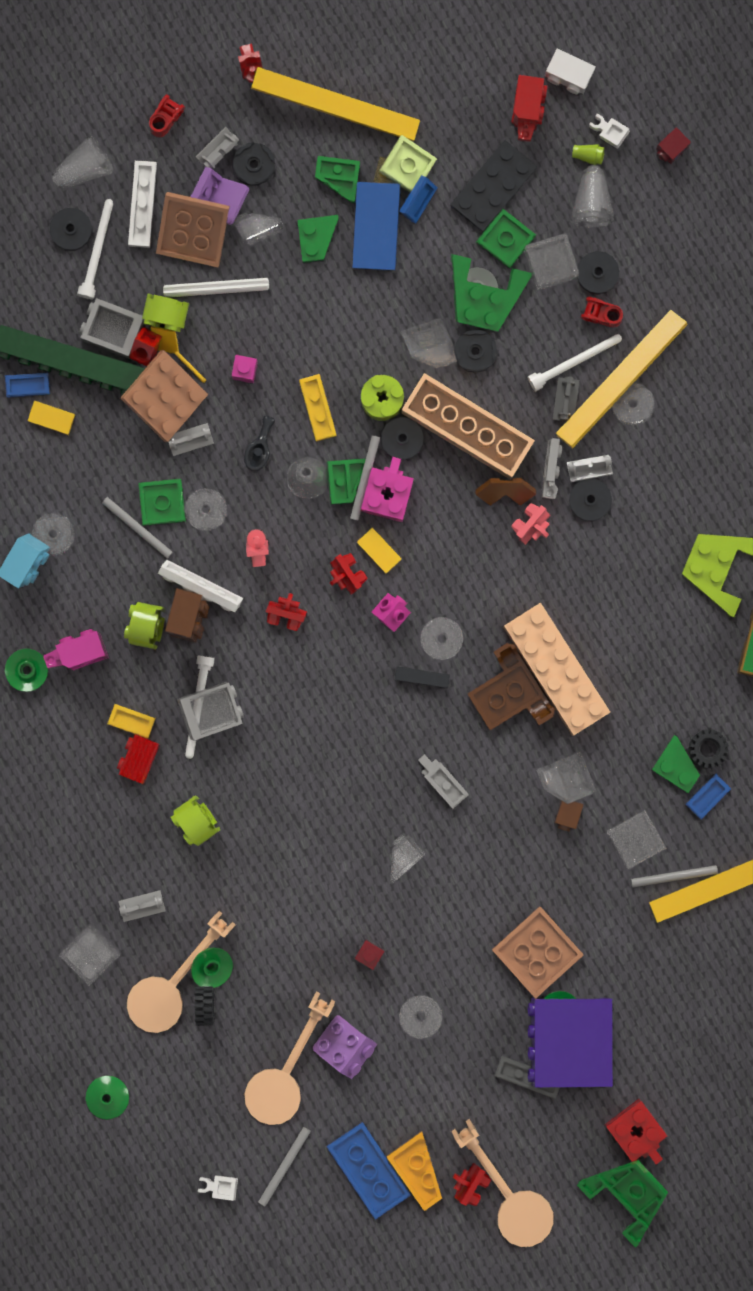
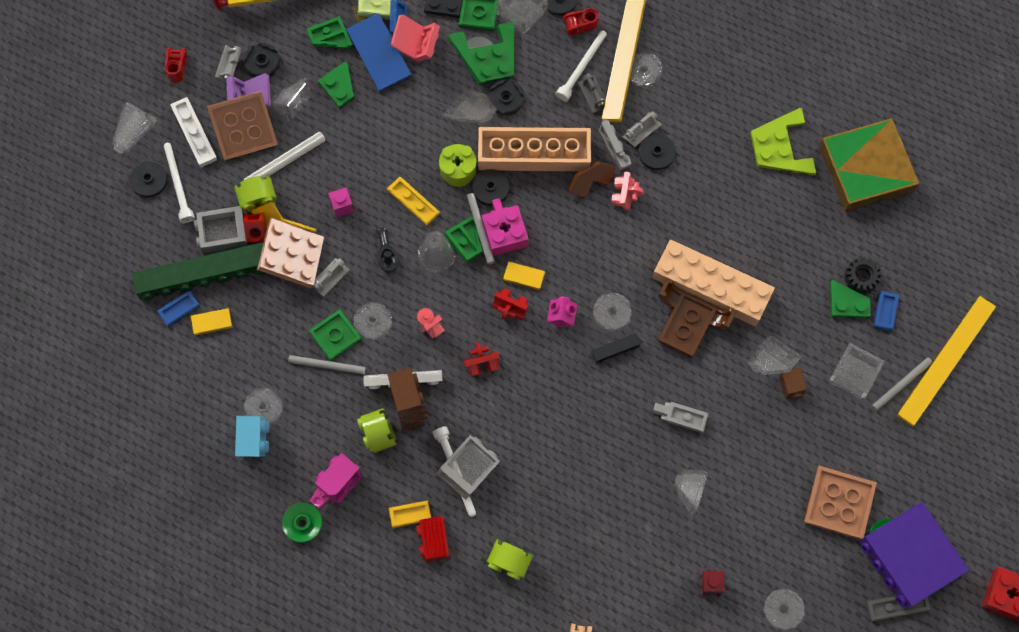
camera: 30 degrees left, 15 degrees down
(420, 233) = (415, 39): none -> coral bracket

